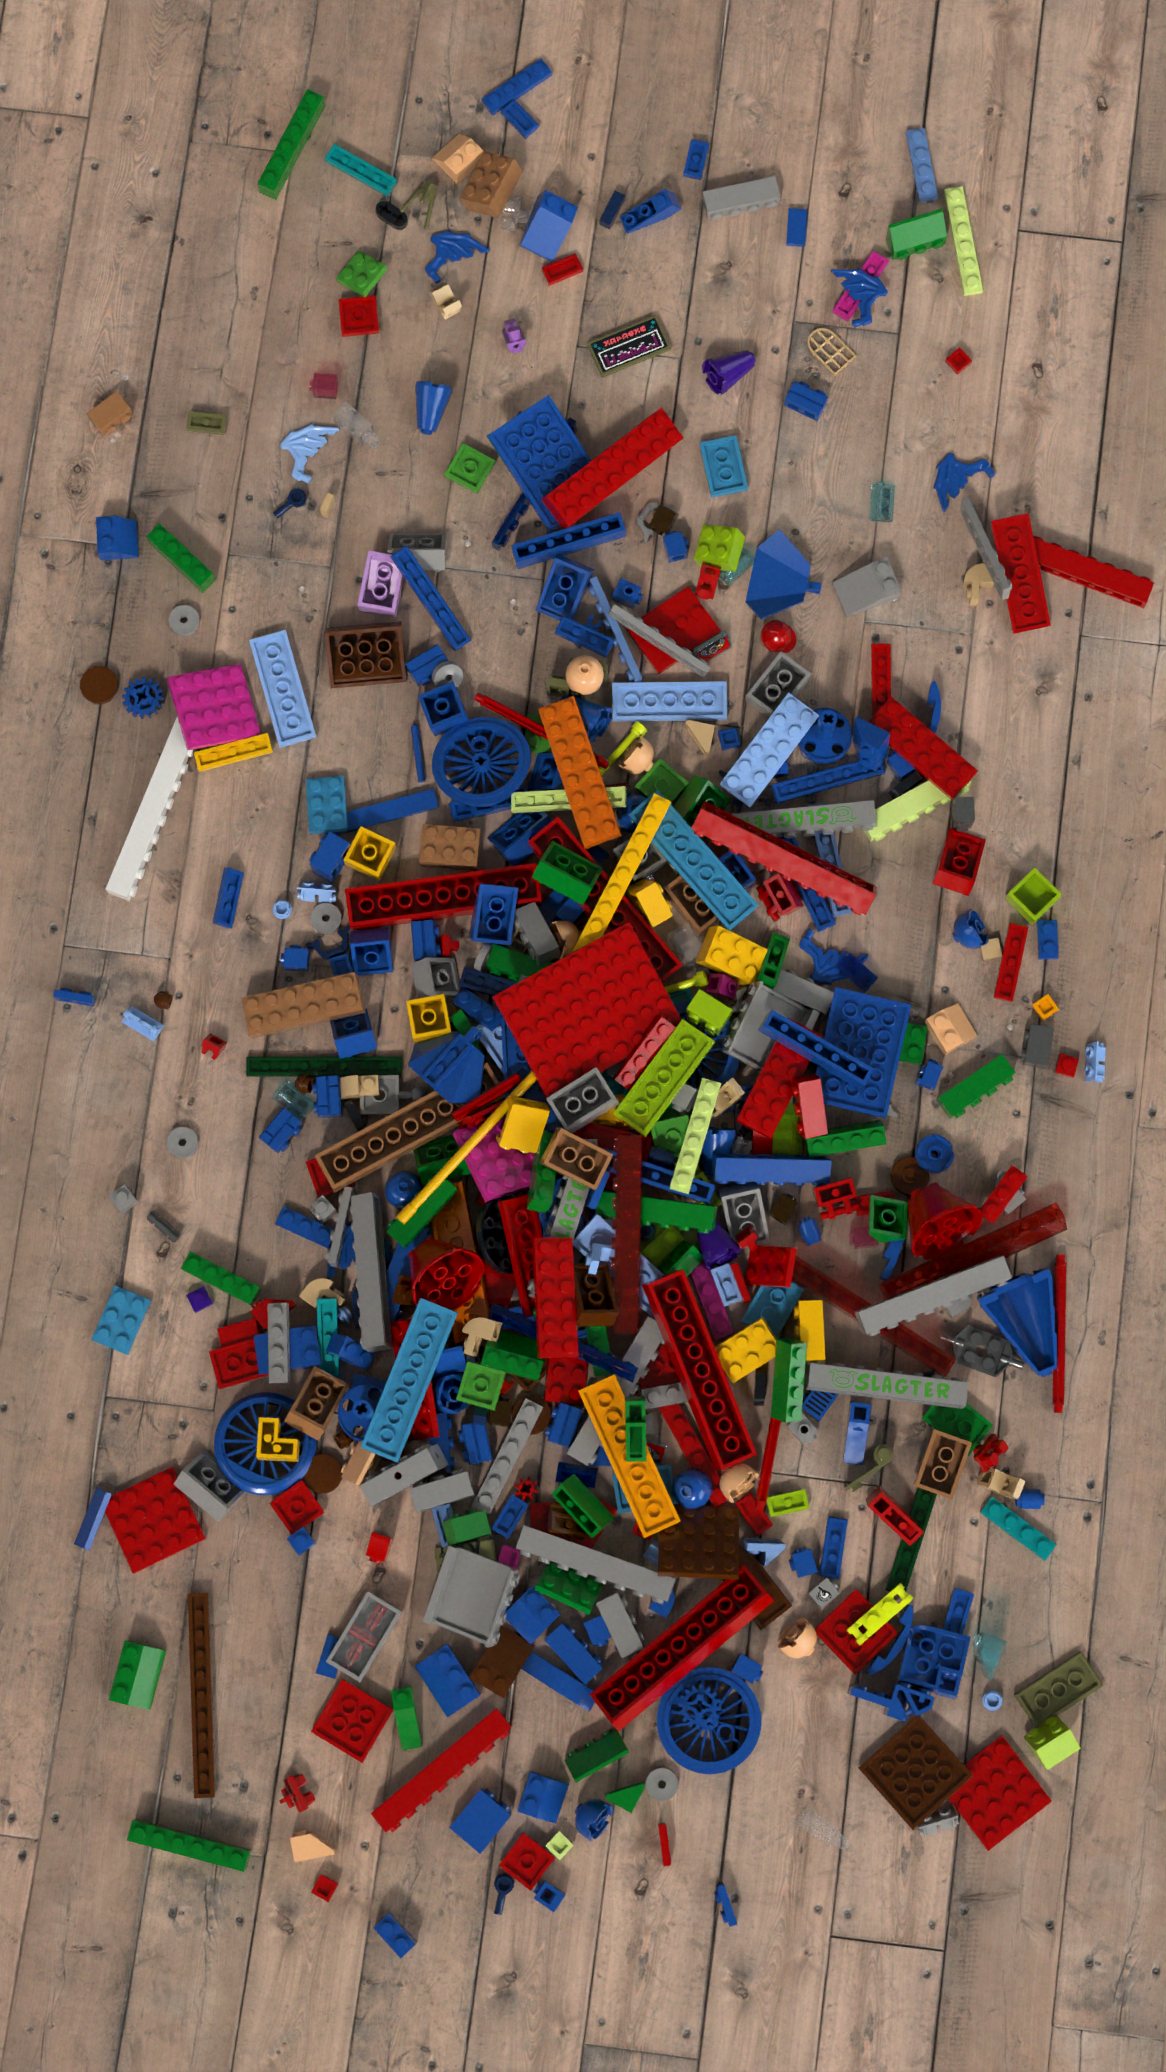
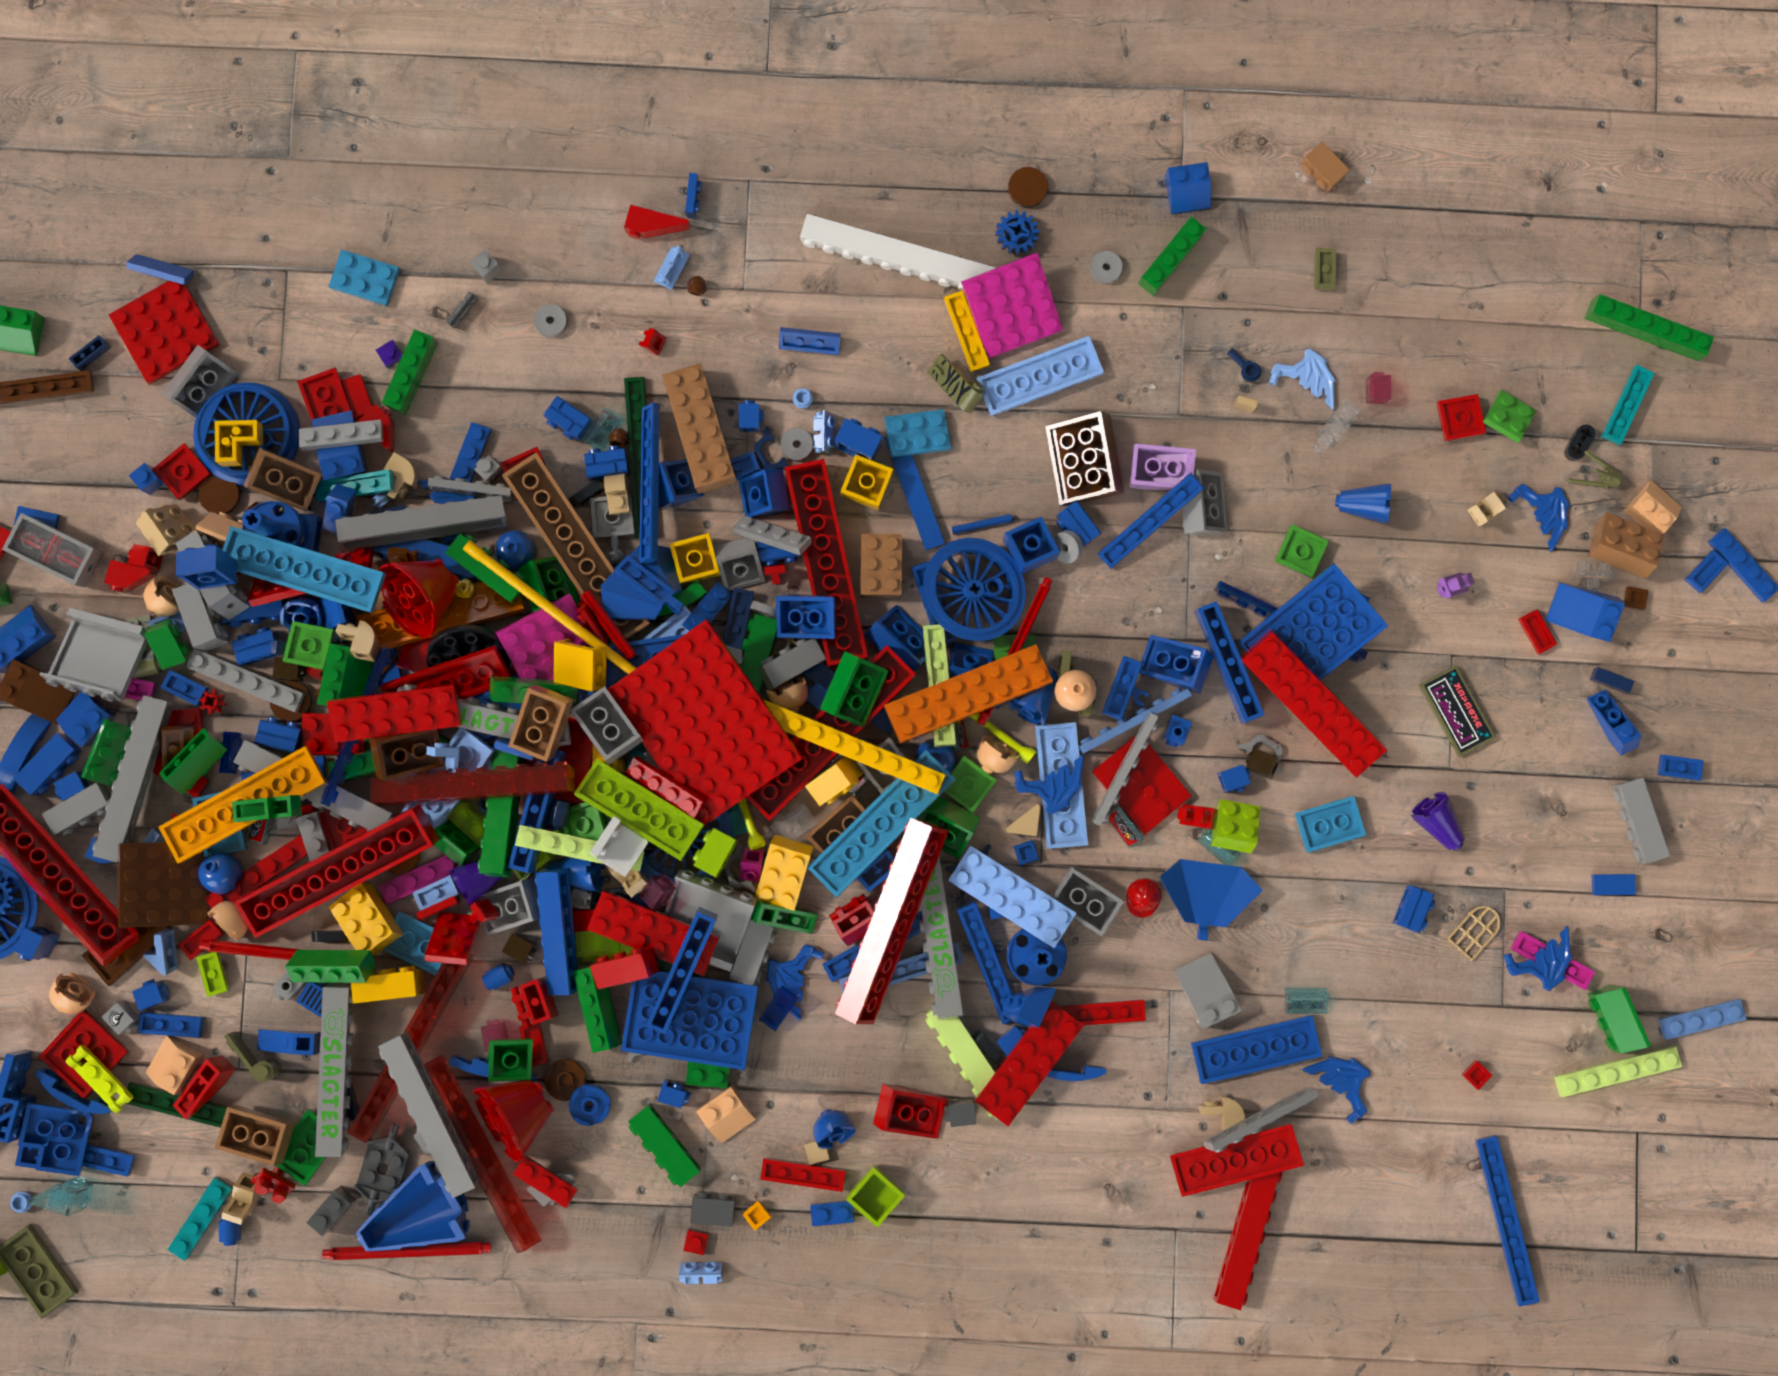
camera: 80 degrees right, 5 degrees up
(97, 1043) = (650, 223): none -> red slope
(169, 1594) = (89, 353): none -> dark blue piece
(283, 766) = (963, 392): none -> olive door
(352, 1053) = (649, 483): none -> blue tile
(353, 1520) = (164, 527): none -> tan brick
(395, 1566) = (127, 576): none -> red slope
(400, 1464) = (206, 567): none -> blue brick
(413, 943) = (772, 535): none -> light grey plate
(421, 1530) = (160, 598): none -> light nougat cylinder
(438, 1232) = (467, 592): none -> yellow plate
(538, 182) = (1635, 598): none -> reddish brown tile
(671, 703) = (1057, 788): none -> blue animal
(697, 1097) = (618, 847): none -> white bracket
(740, 1071) = (657, 891): none -> clear pink brick
(871, 1546) = (173, 1065): none -> light nougat slope
(923, 549) = (1256, 1049): none -> blue plate
(1018, 1400) = (331, 1211): none -> dark grey brick
(1088, 348) = (1507, 1220): none -> blue plate

